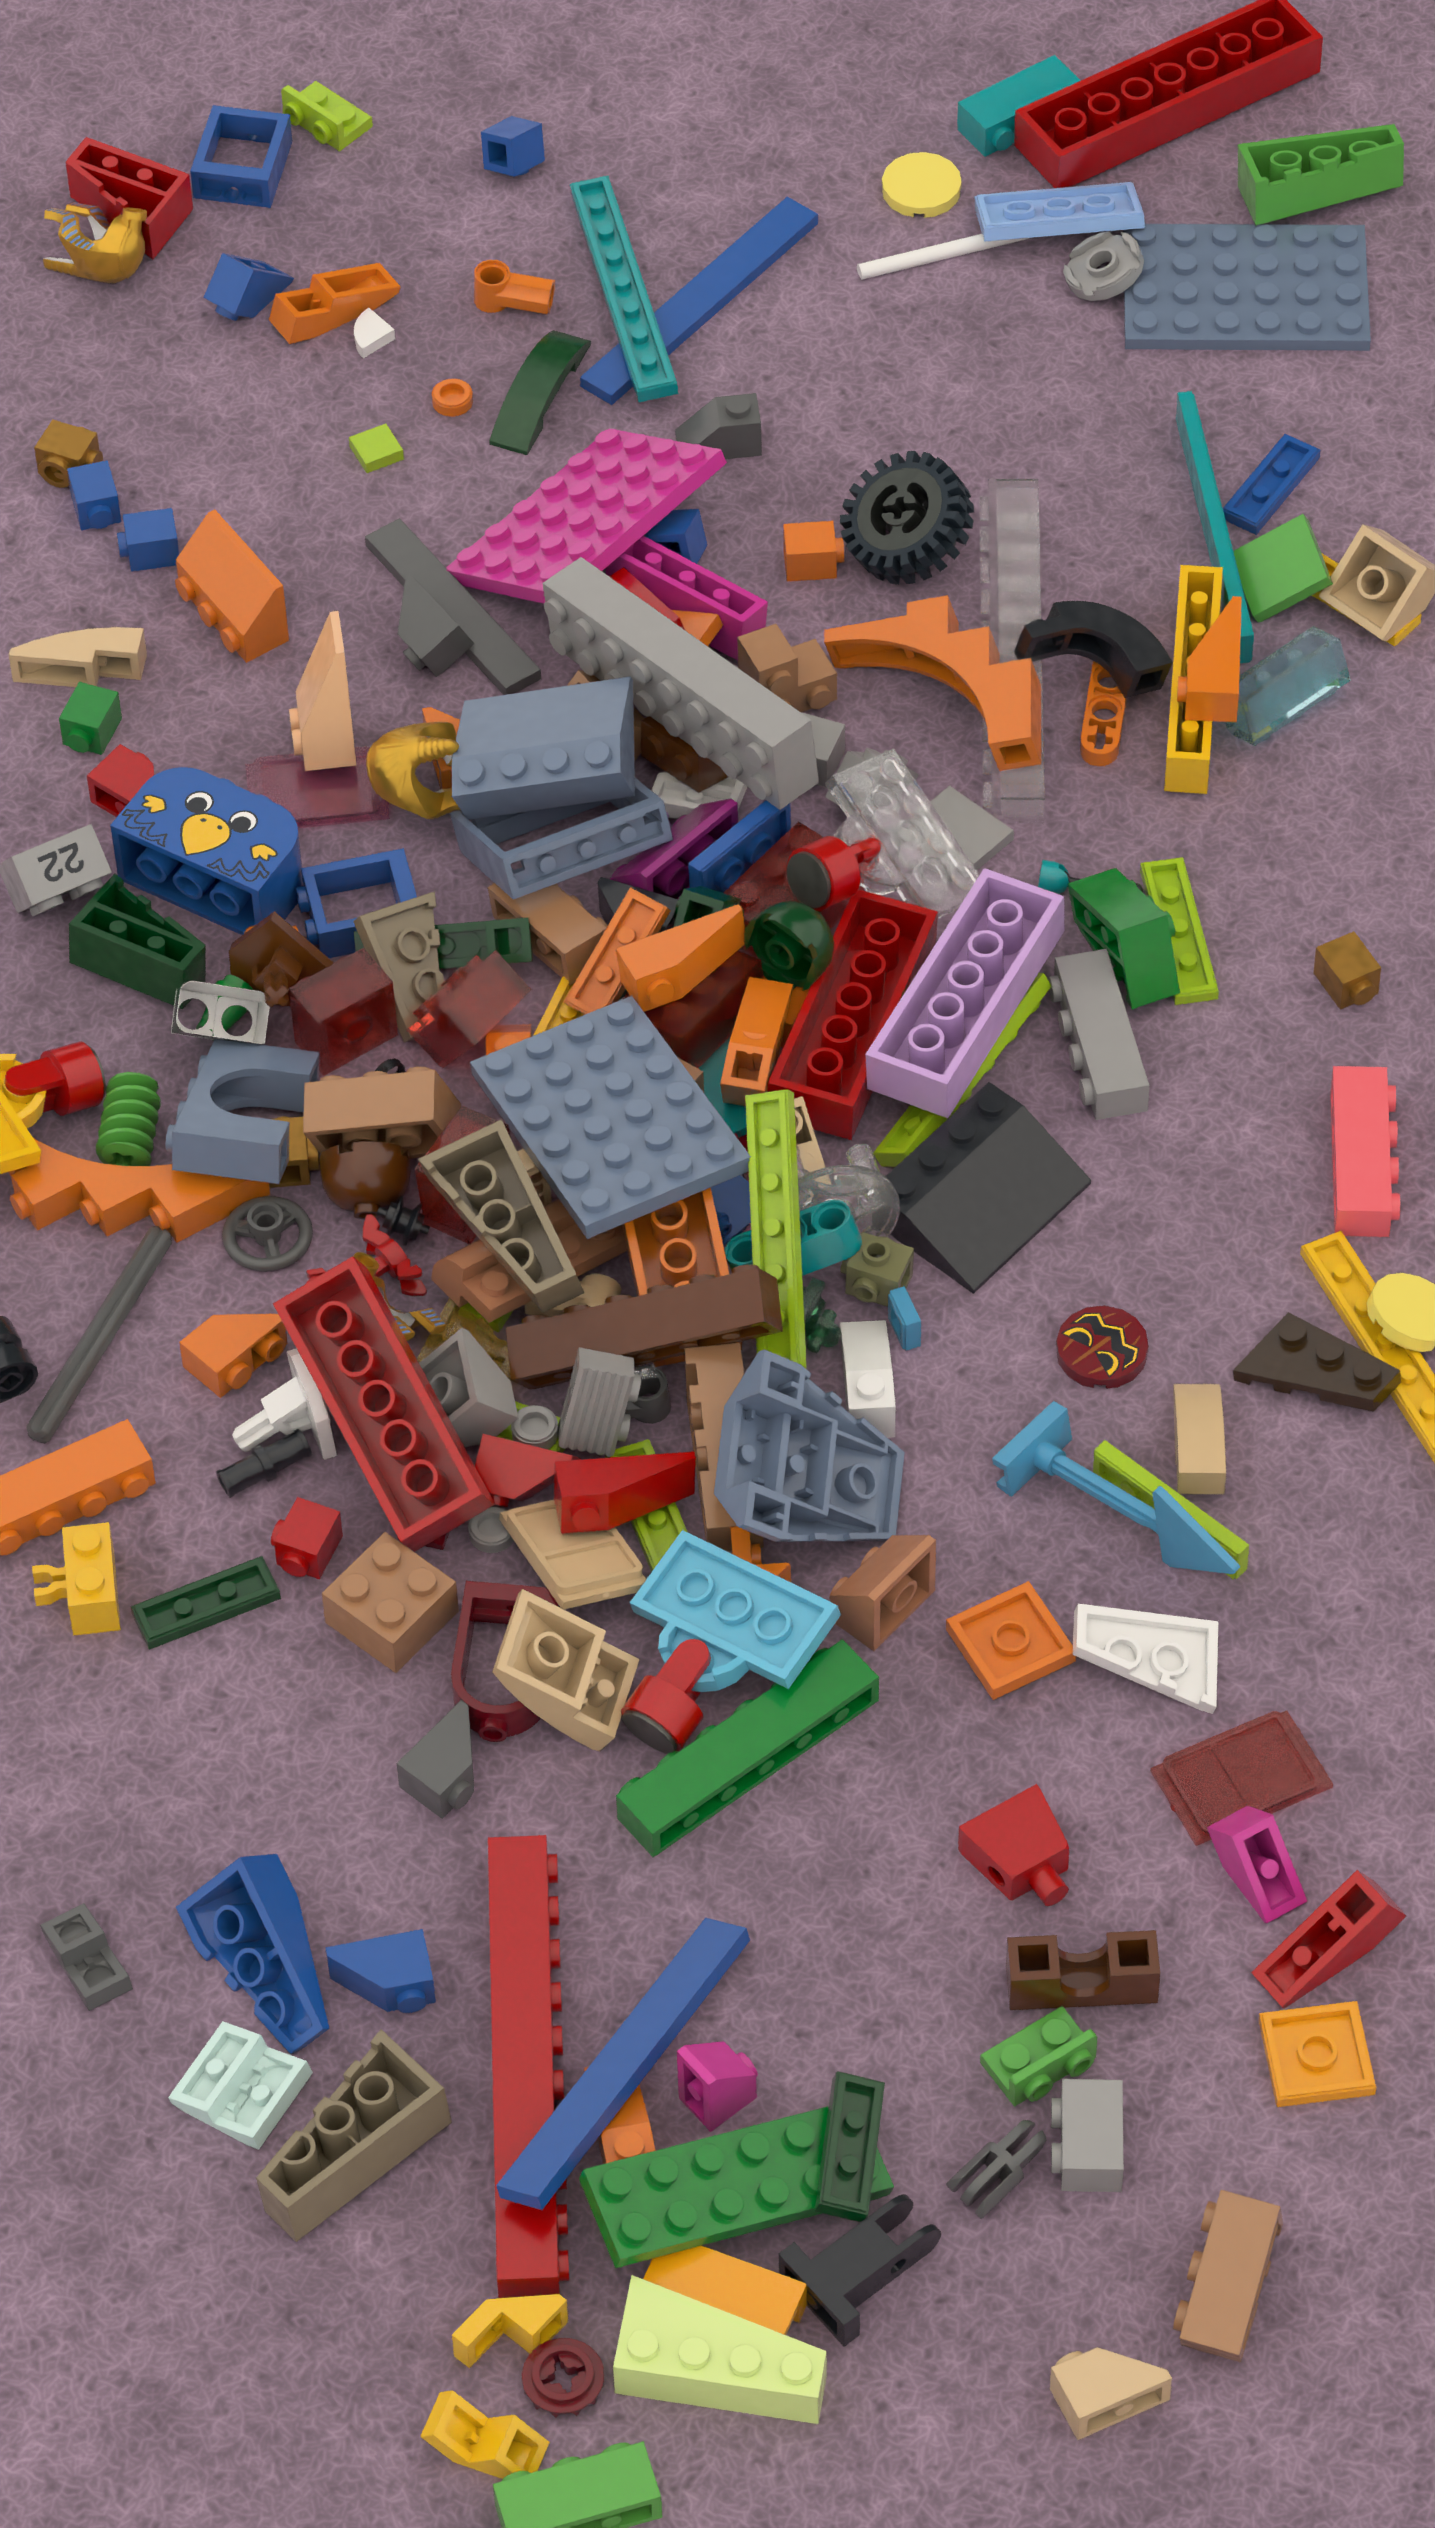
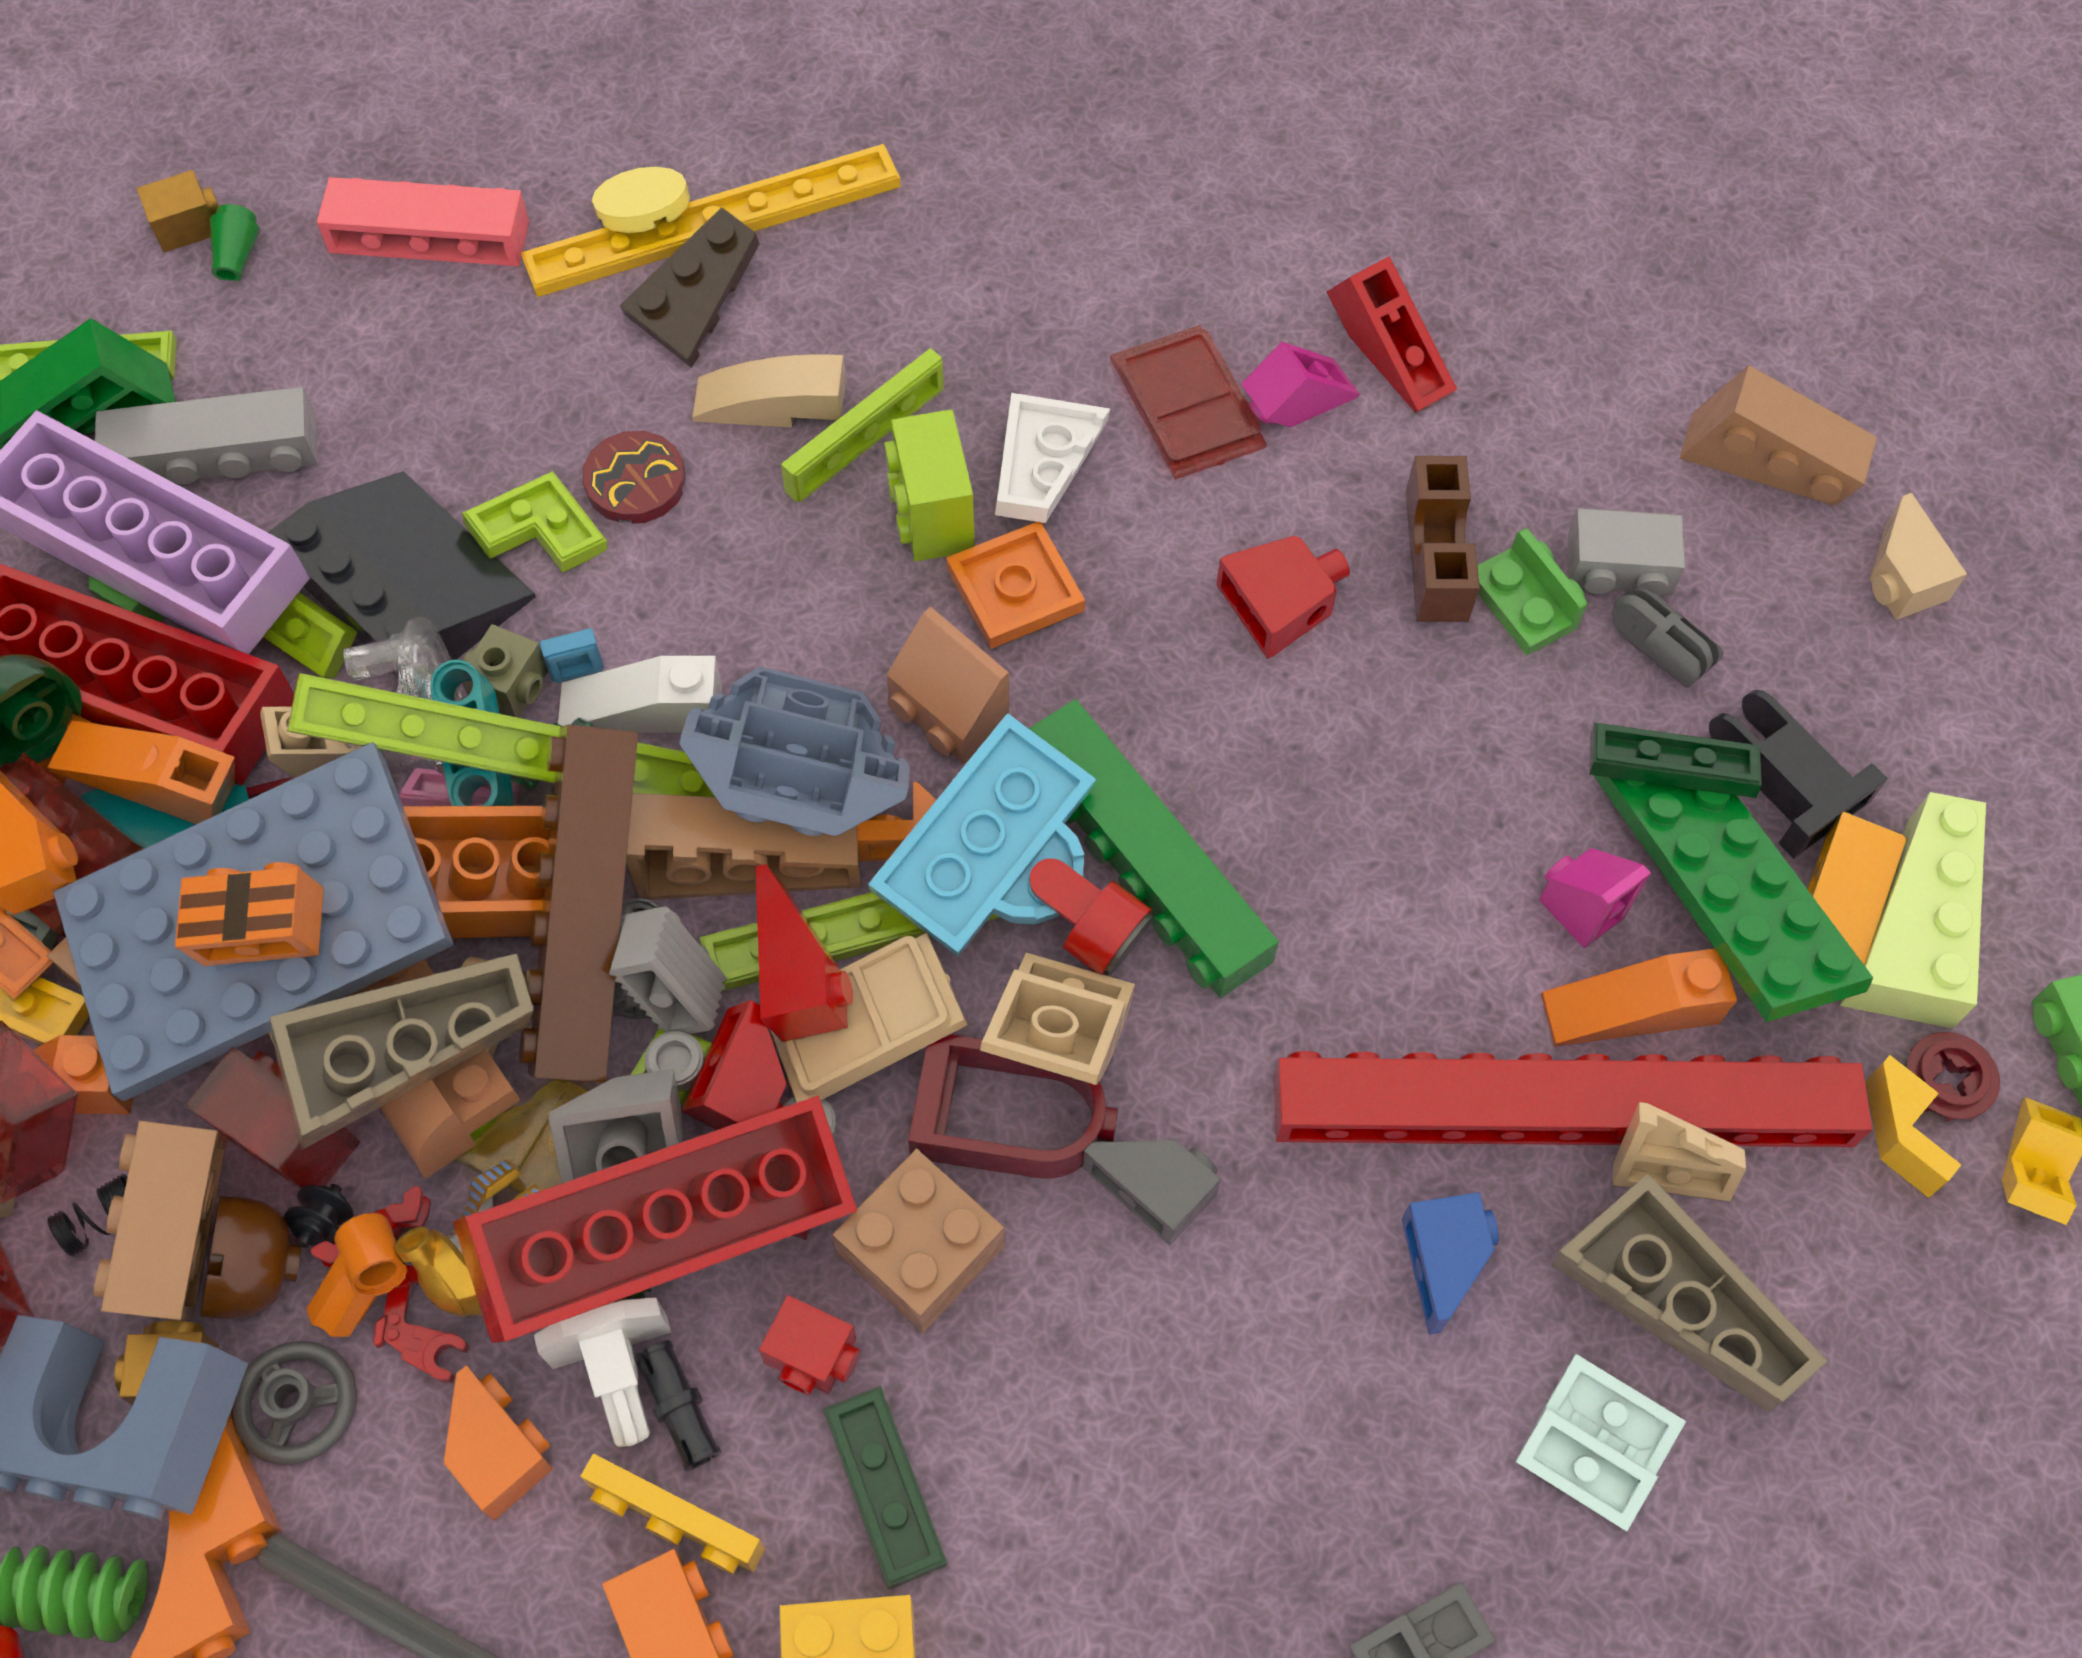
camera: 90 degrees left, 10 degrees up
(181, 1465) = (671, 1516): none -> yellow plate
(258, 1934) = (1400, 1409): blue wedge -> none
(341, 1241) = (360, 1273): none -> orange piece
(471, 2132) = (1677, 1156): none -> tan wing
(592, 1101) = (249, 915): none -> orange brick
(622, 2064) = (1590, 985): blue tile -> none
(1040, 1447) = (913, 394): dark azure piece -> none
(1054, 1281) = (538, 511): none -> lime tile
(1092, 1555) = (930, 485): none -> lime brick
(1317, 2054) = (1510, 365): light orange tile -> none
(1321, 1015) = (232, 239): none -> green cone

